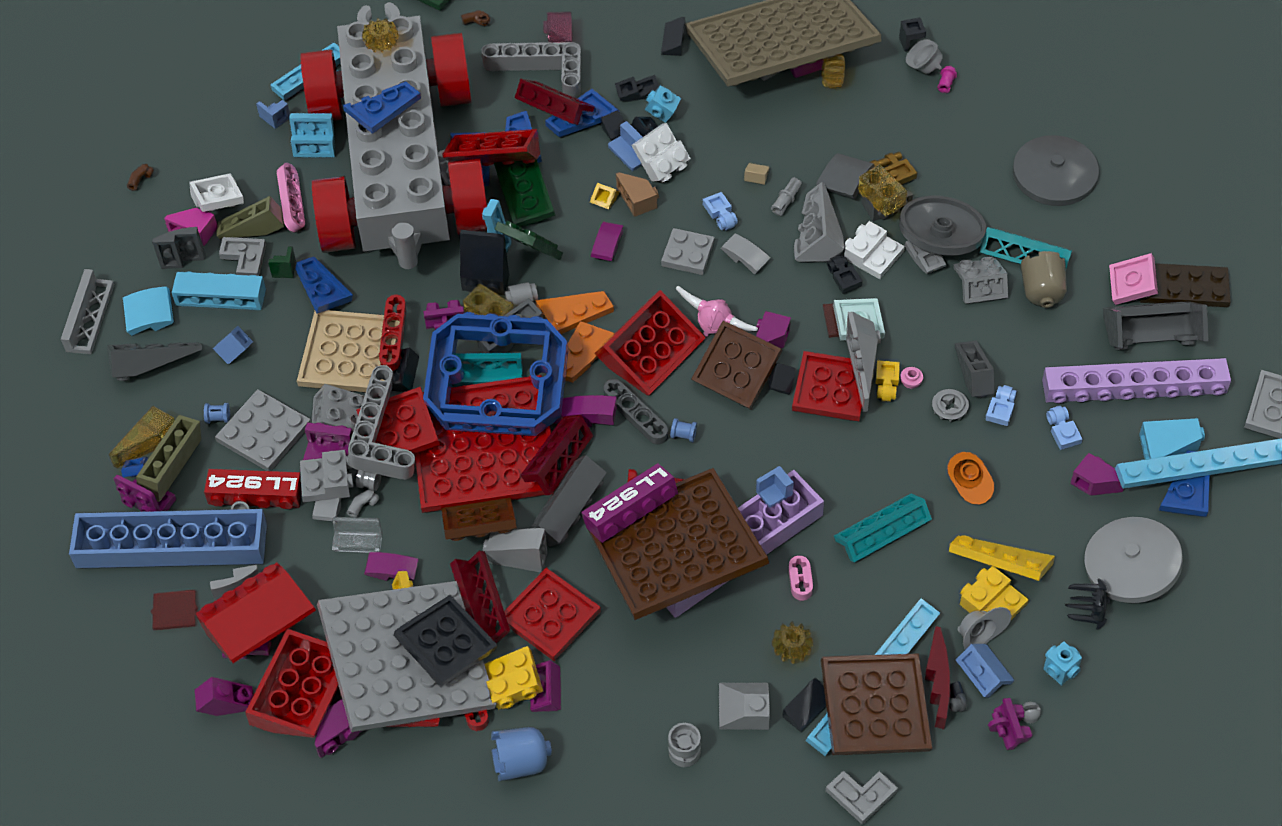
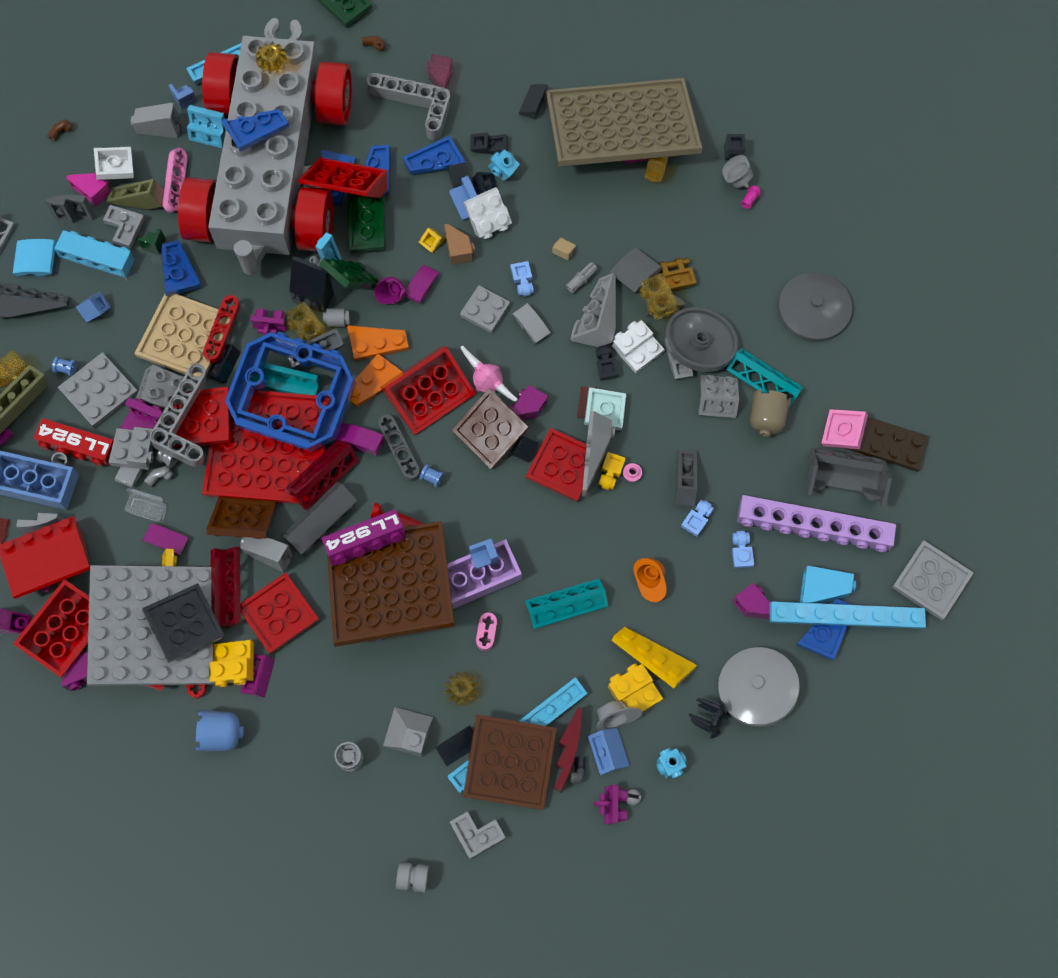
camera: 10 degrees right, 15 degrees up
(252, 141) = (157, 120): none -> light grey slope
(551, 100) = (412, 140): dark red fence -> none
(574, 253) = (389, 290): none -> magenta hair
(947, 397) = (656, 497): light grey gear -> none

